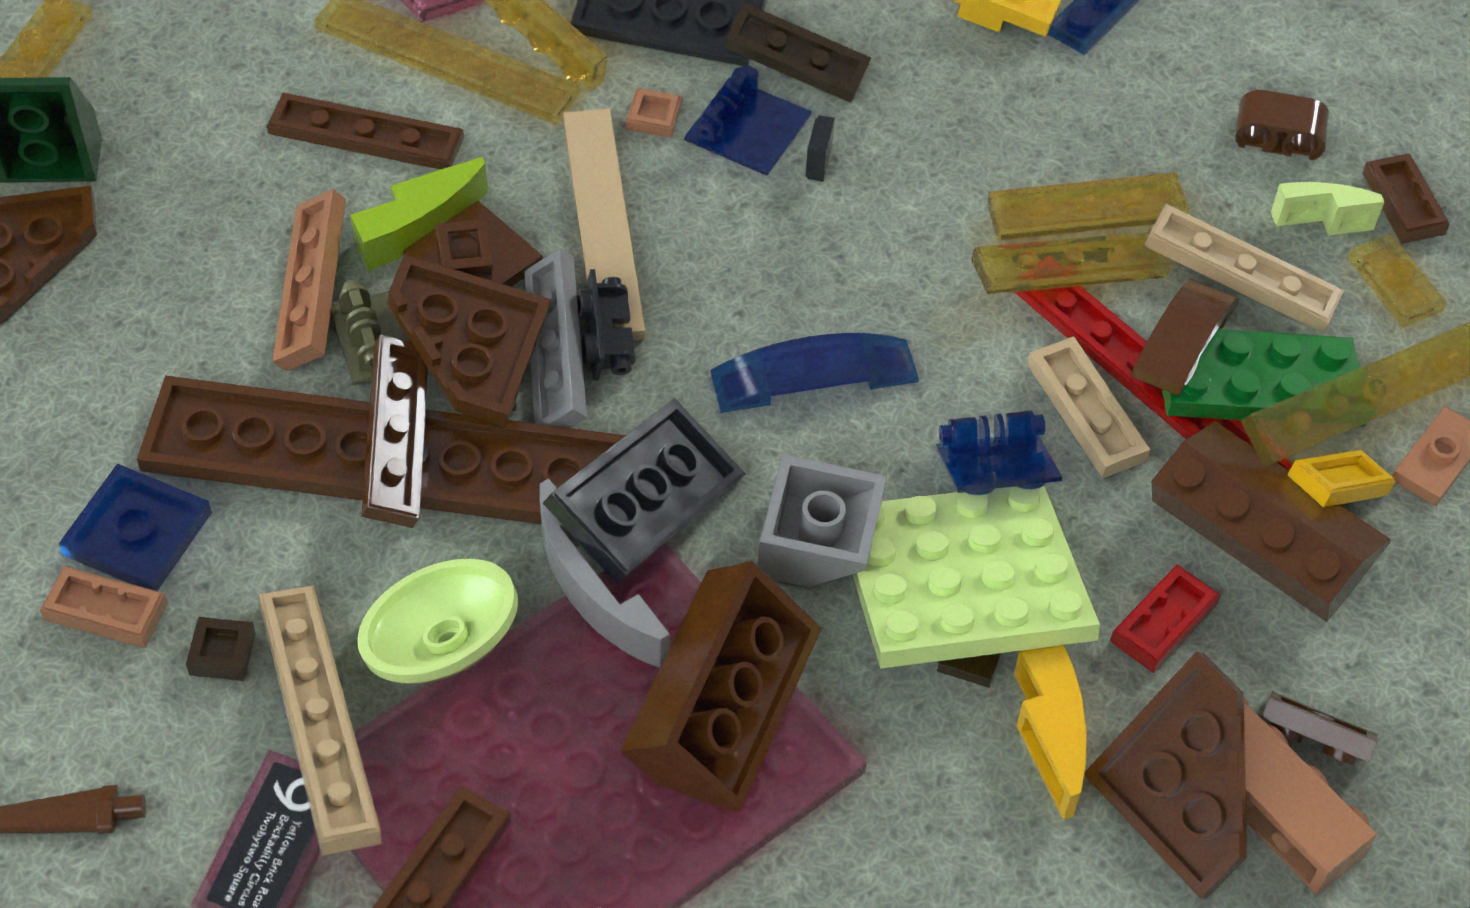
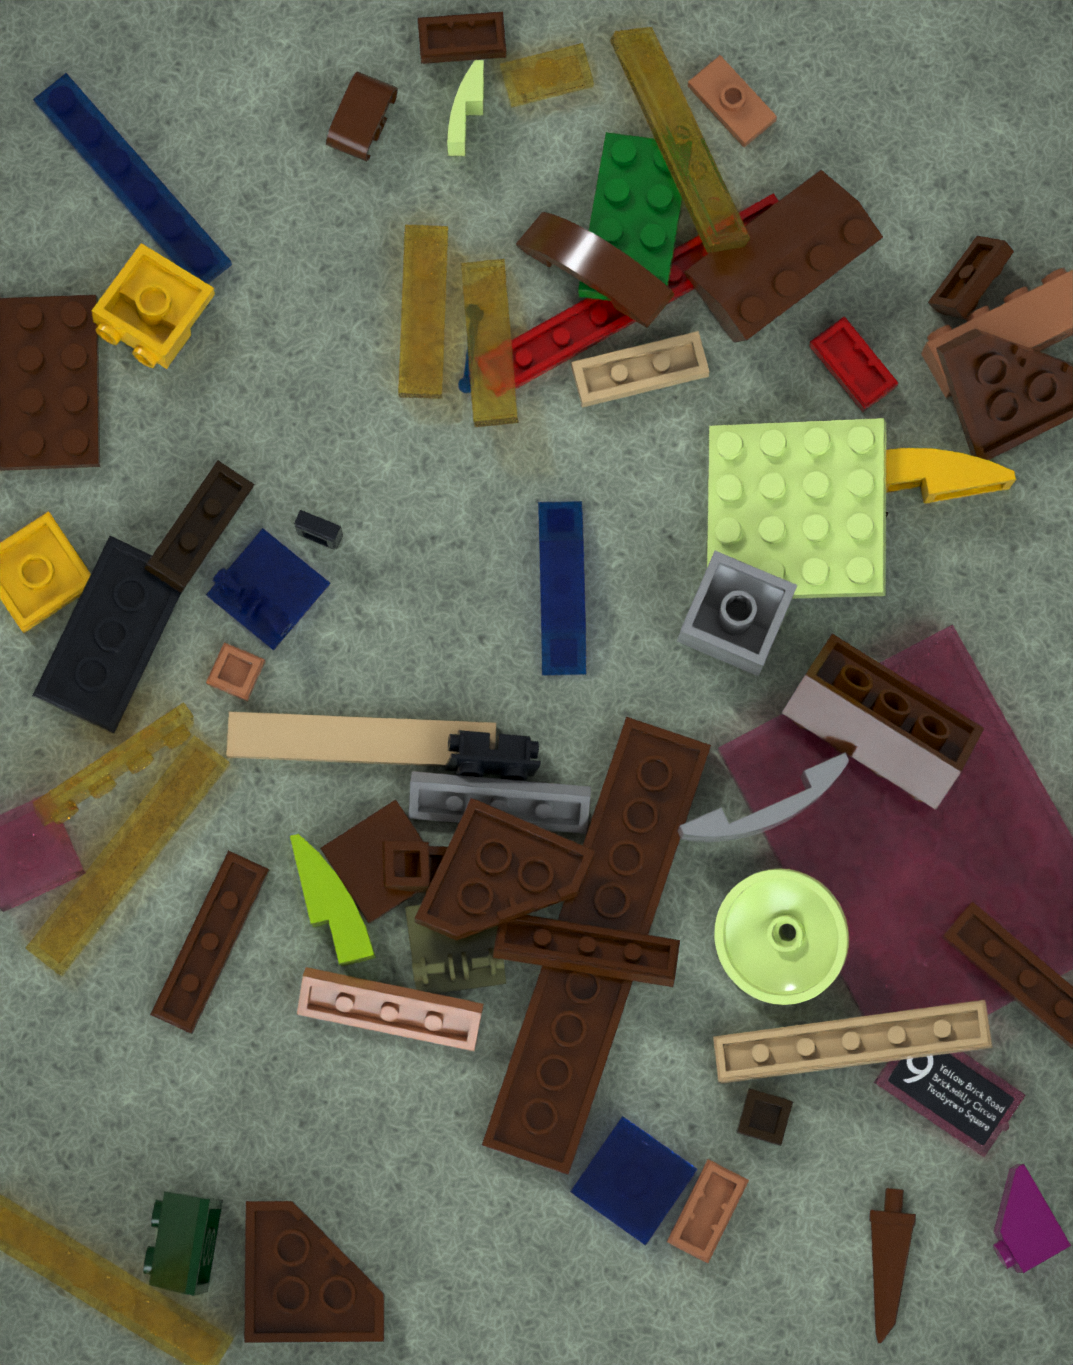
camera: 80 degrees left, 25 degrees up
(644, 490) = (687, 748): black tile -> none
(999, 461) = (690, 456): clear blue hinge -> none
(1244, 268) = (517, 199): tan tile -> none
(1341, 478) = (753, 188): yellow tile -> none

